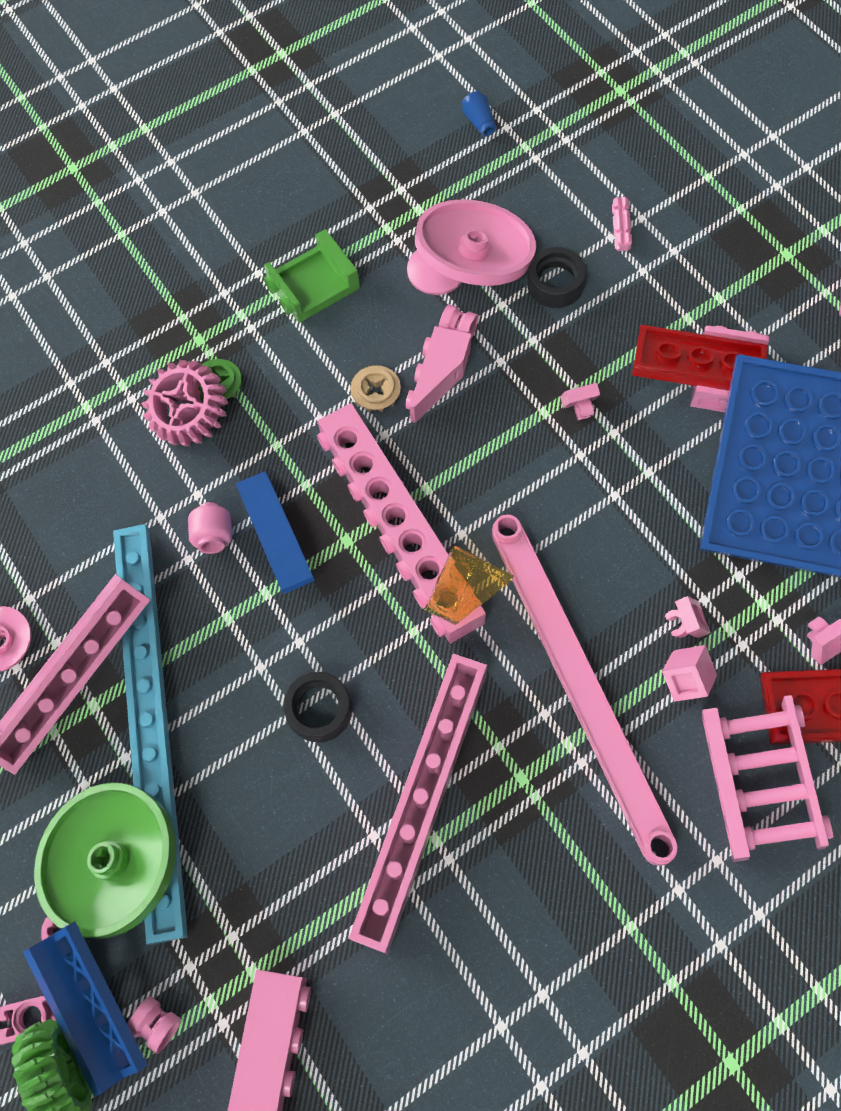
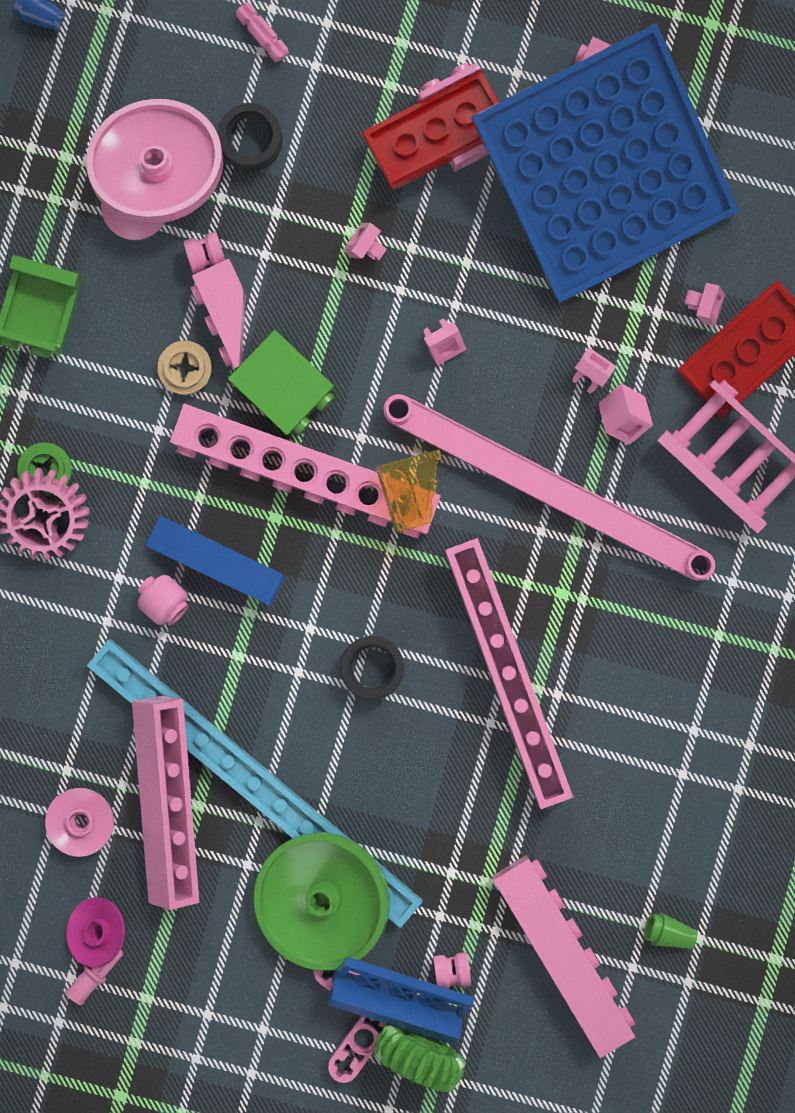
camera: 45 degrees left, 20 degrees up
(435, 448) = (283, 384): none -> bright green panel
(583, 510) = (444, 342): none -> bright pink tile

